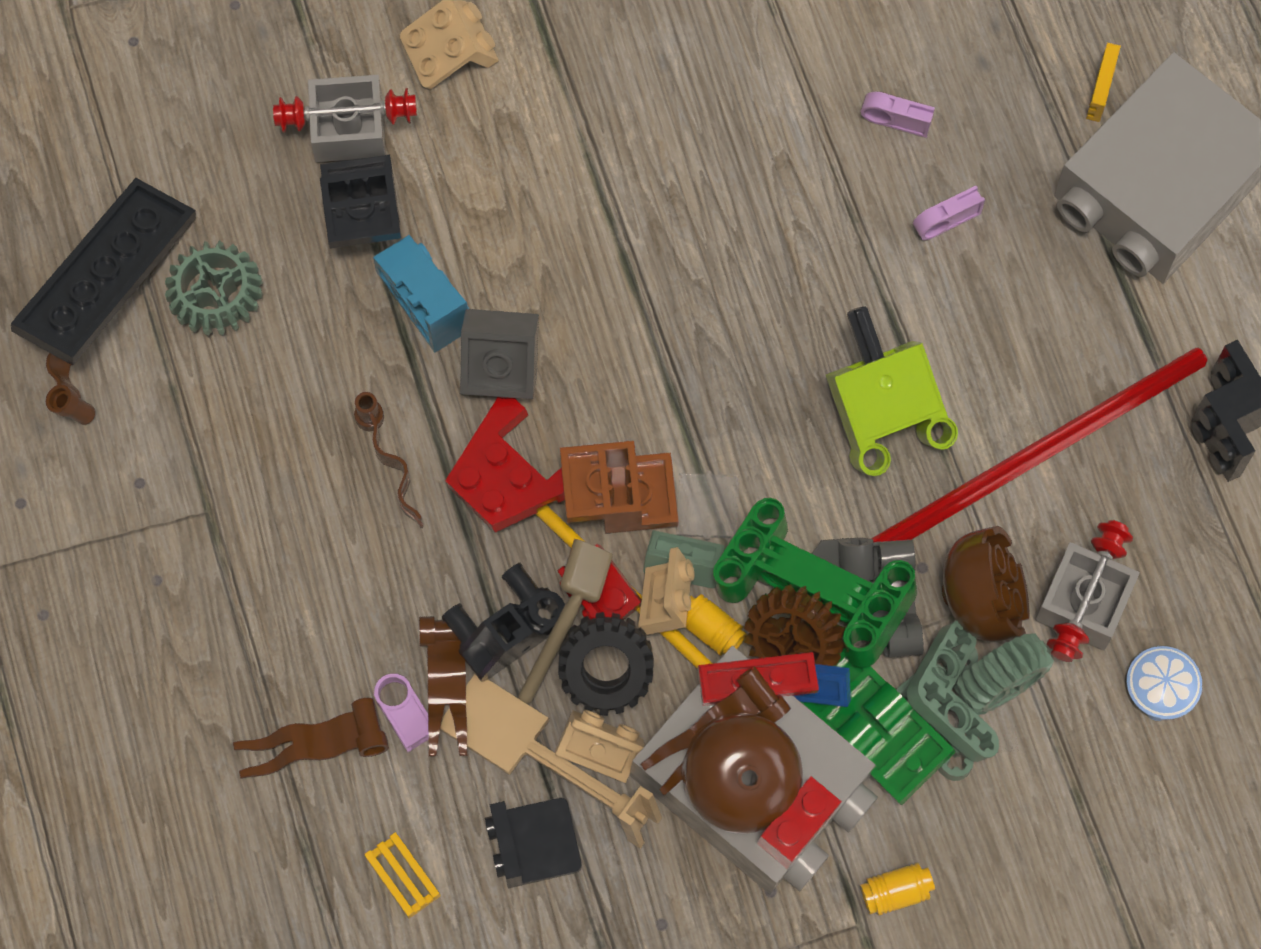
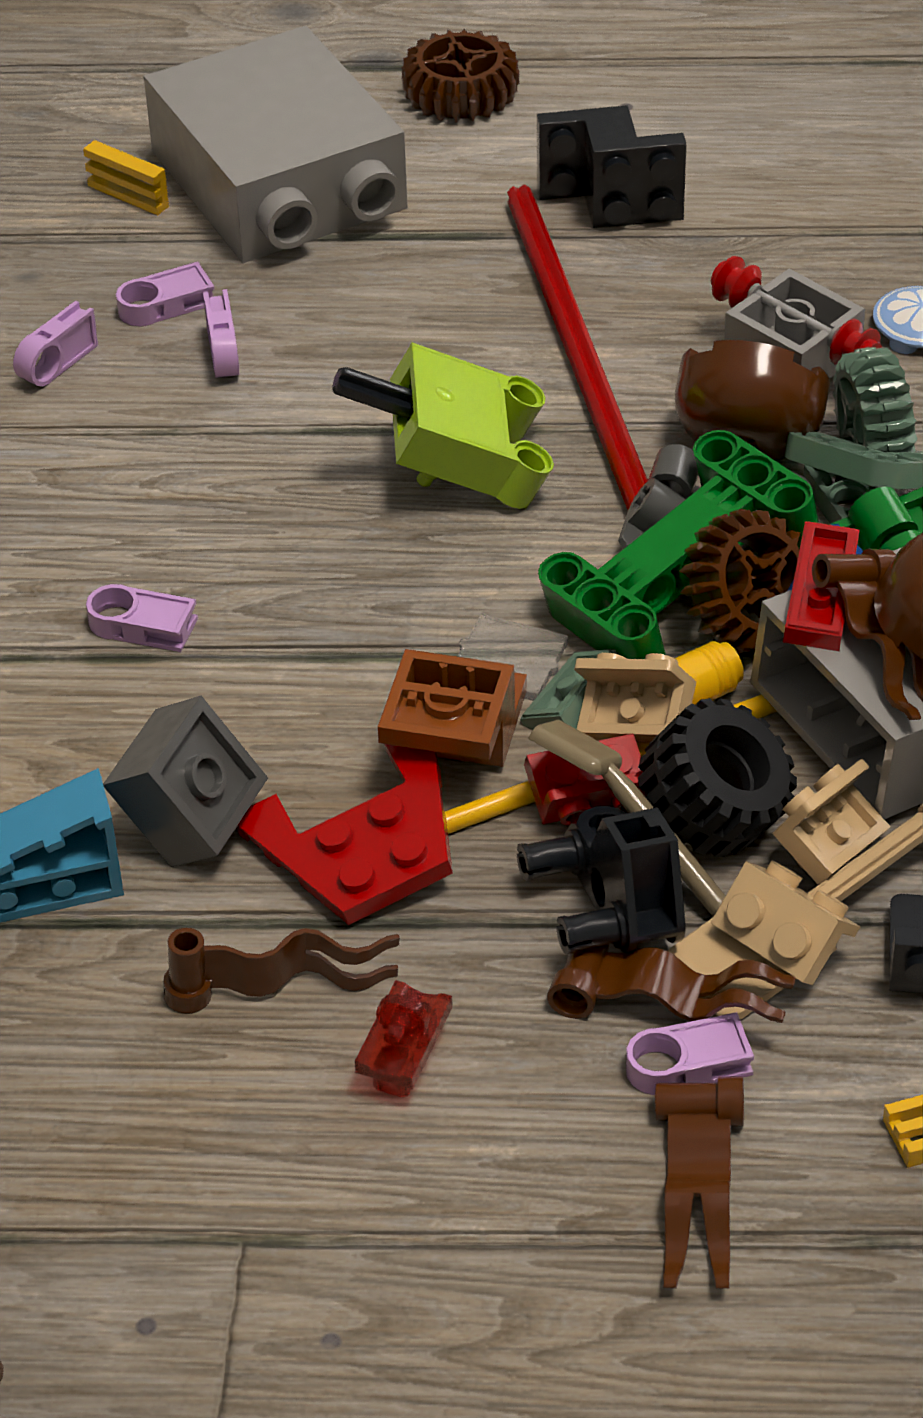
camera: 70 degrees left, 25 degrees down
(356, 546) = (402, 1038): none -> clear red hips
(508, 737) = (783, 921): none -> tan bracket
(662, 277) = (152, 616): none -> lavender piece
(994, 167) = (169, 293): none -> lavender piece

